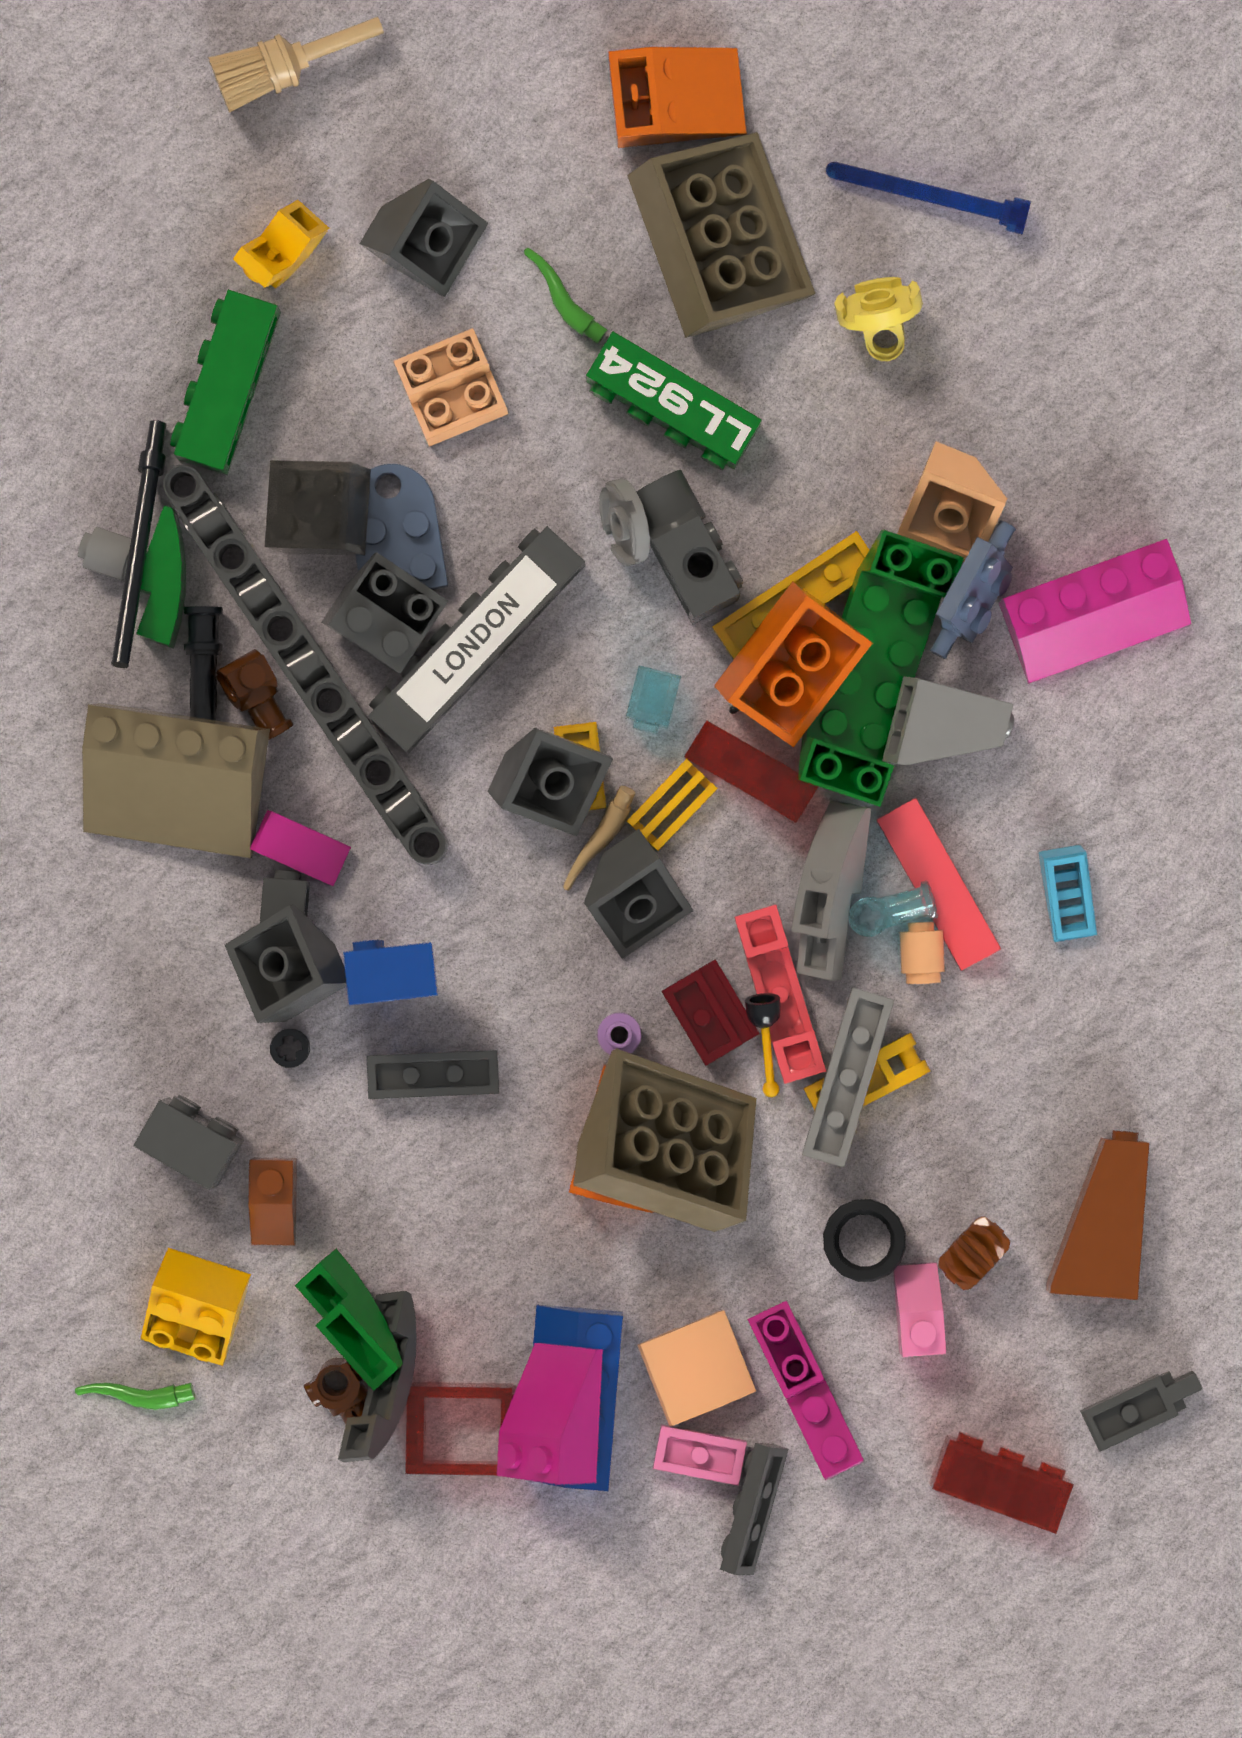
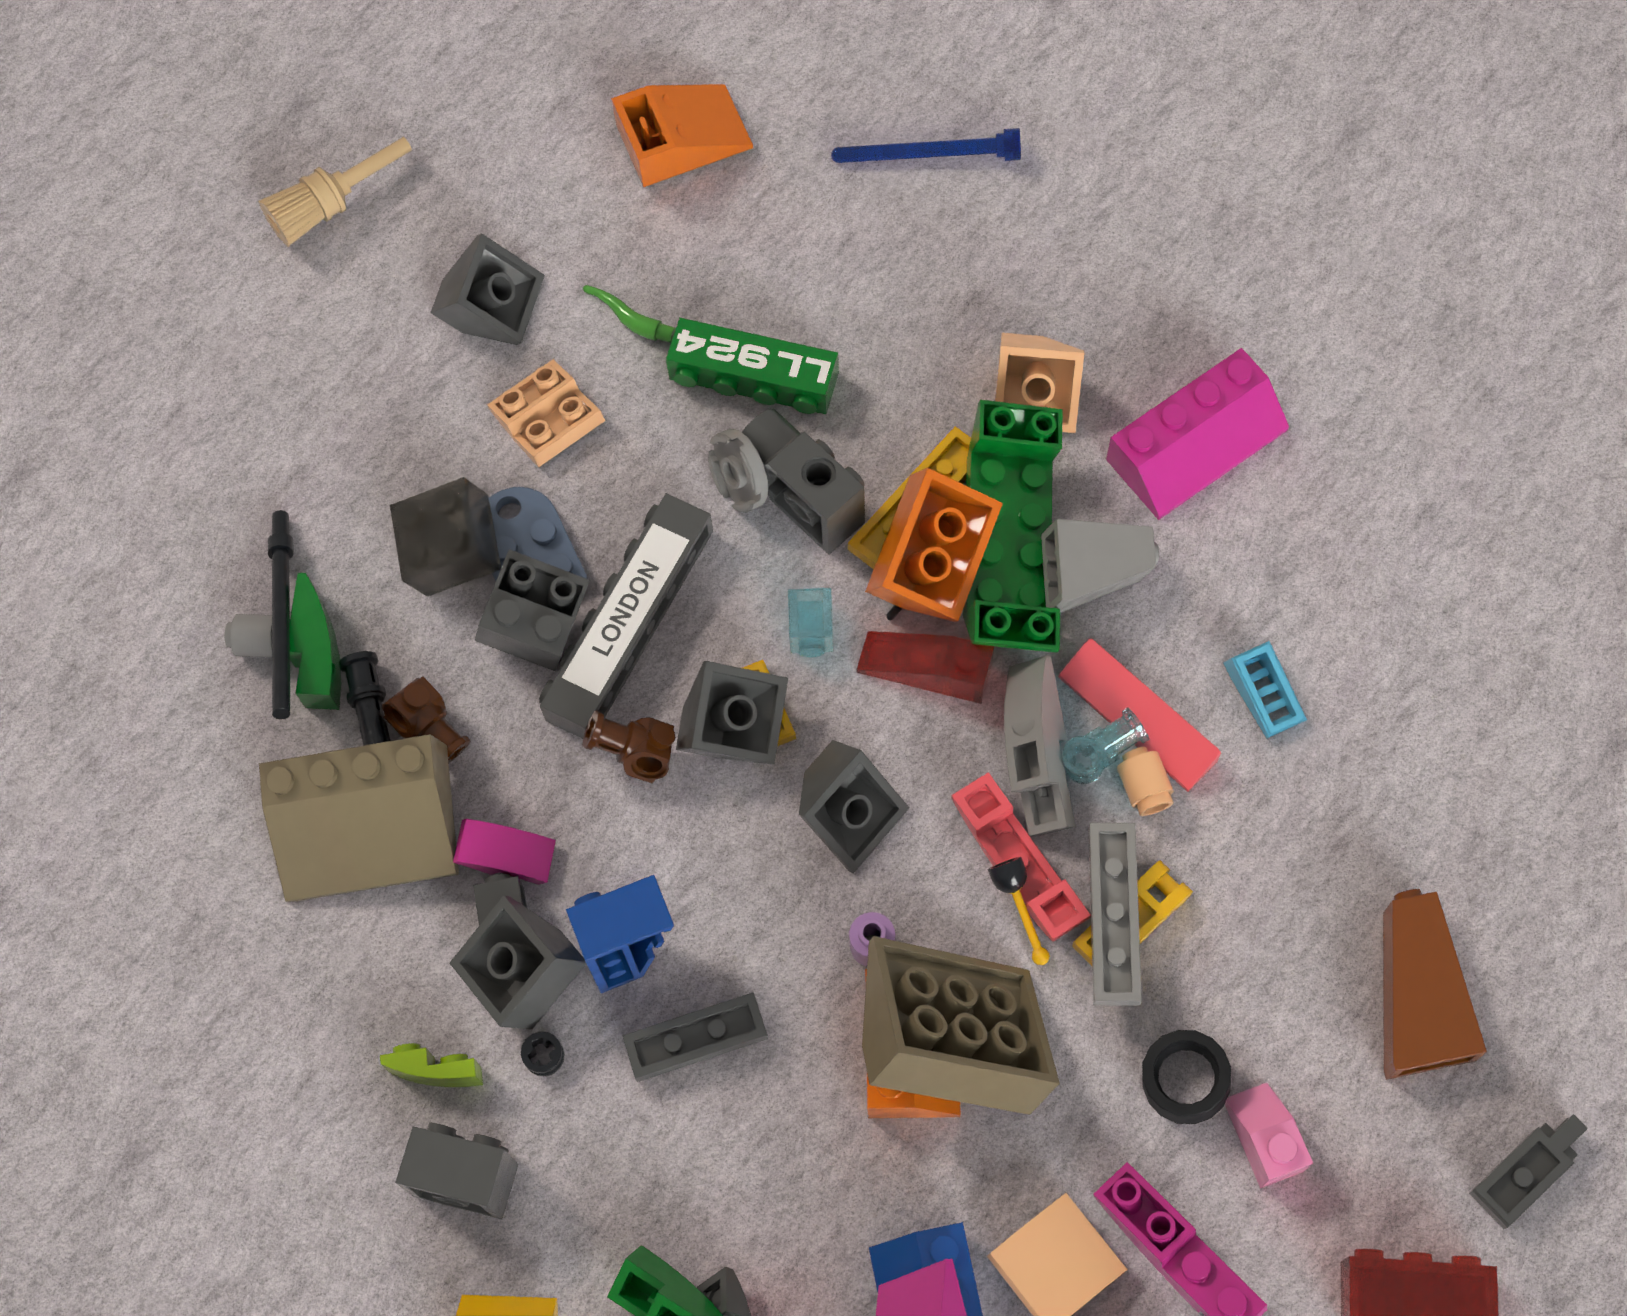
camera: 15 degrees left, 20 degrees down
(175, 1030) = (419, 1066): none -> lime slope
(226, 381) = (334, 460): green brick -> none
(272, 1200) = (562, 1214): dark orange slope -> none
(282, 245) = (361, 335): yellow brick -> none
(304, 663) = (472, 685): dark grey beam -> none
(452, 782) = (640, 746): none -> reddish brown connector
(608, 828) = (804, 751): tan animal -> none
(697, 778) = (874, 684): yellow tile -> none
(710, 1012) = (956, 896): dark red plate -> none
(720, 233) = (752, 225): dark tan slope -> none
(878, 307) = (916, 242): light yellow tile -> none
(974, 1253) = (1302, 1054): dark orange gear -> none
(975, 590) = (1081, 441): sand blue plate -> none

